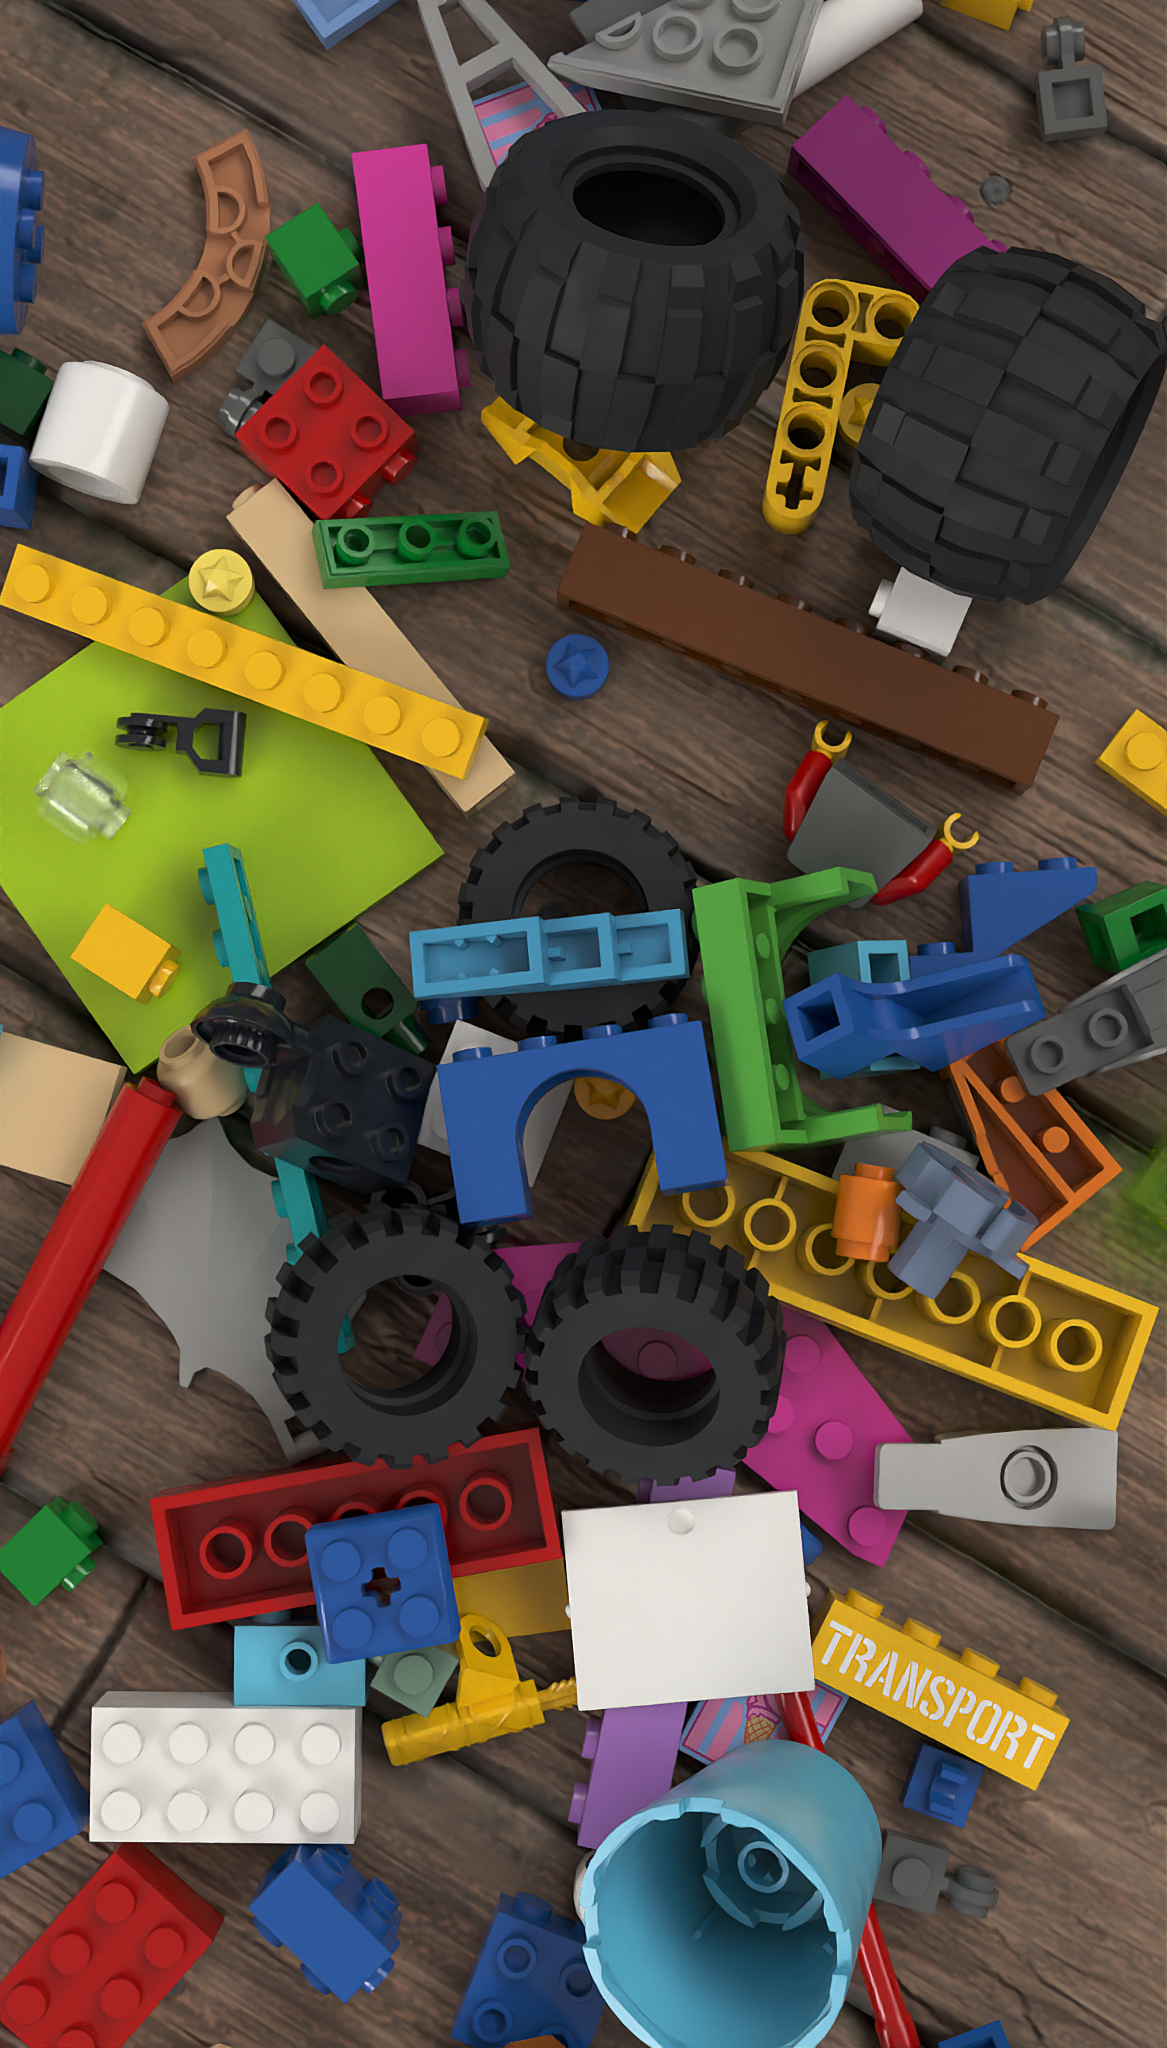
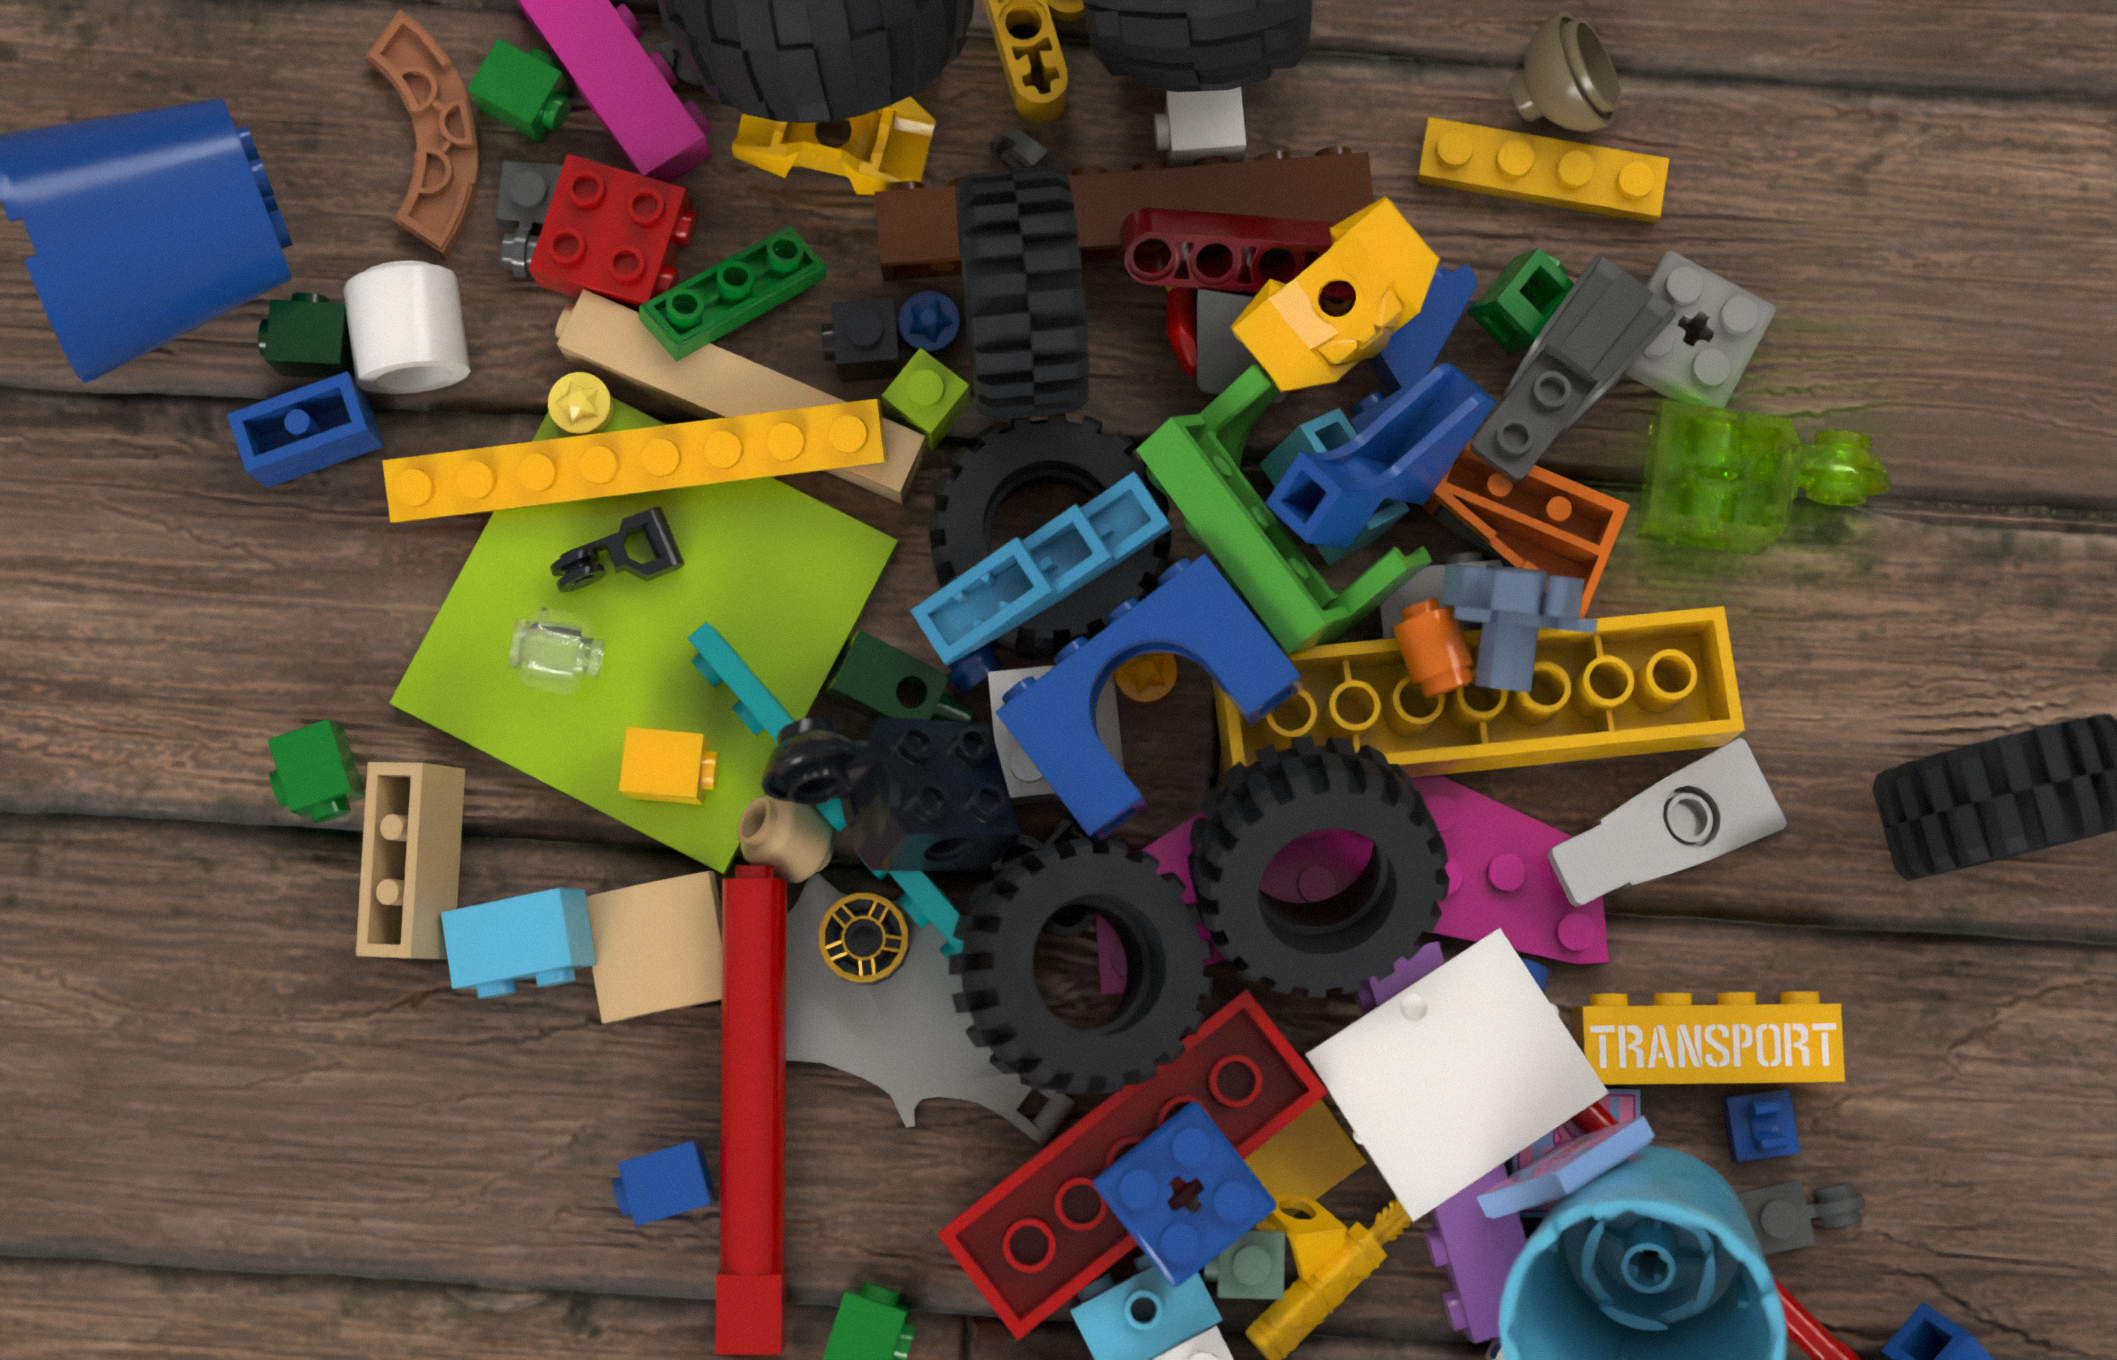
camera: 35 degrees left, 5 degrees down
(199, 1205) = (851, 916): none -> wheel
(507, 653) = (863, 340): none -> black brick
(536, 737) = (927, 398): none -> lime brick
(659, 690) = (1023, 292): none -> black tyre
(737, 1740) = (1566, 1168): none -> light blue tile
(742, 550) = (1018, 149): none -> dark grey tile
(931, 796) = (1239, 264): none -> dark red beam
(1008, 853) = (1391, 280): none -> yellow piece

